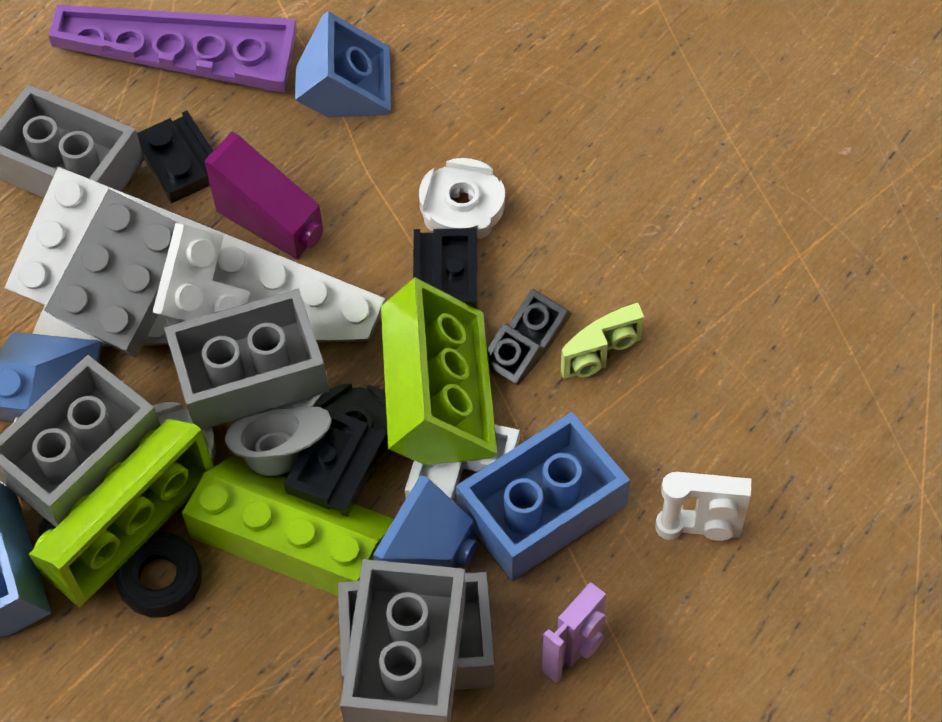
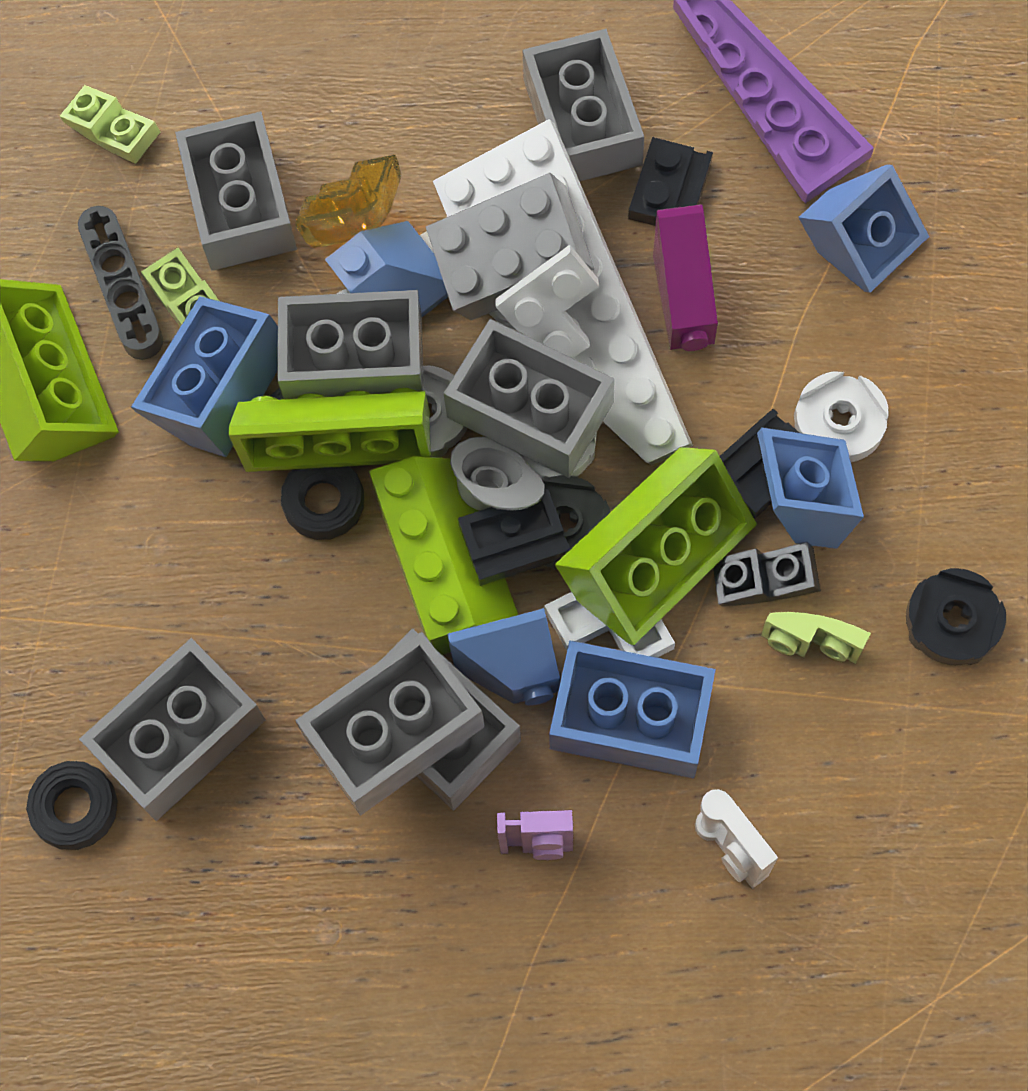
camera: 50 degrees right, 10 degrees up
(499, 249) = (811, 486): none -> medium blue slope
(664, 273) = (979, 605): none -> black plate

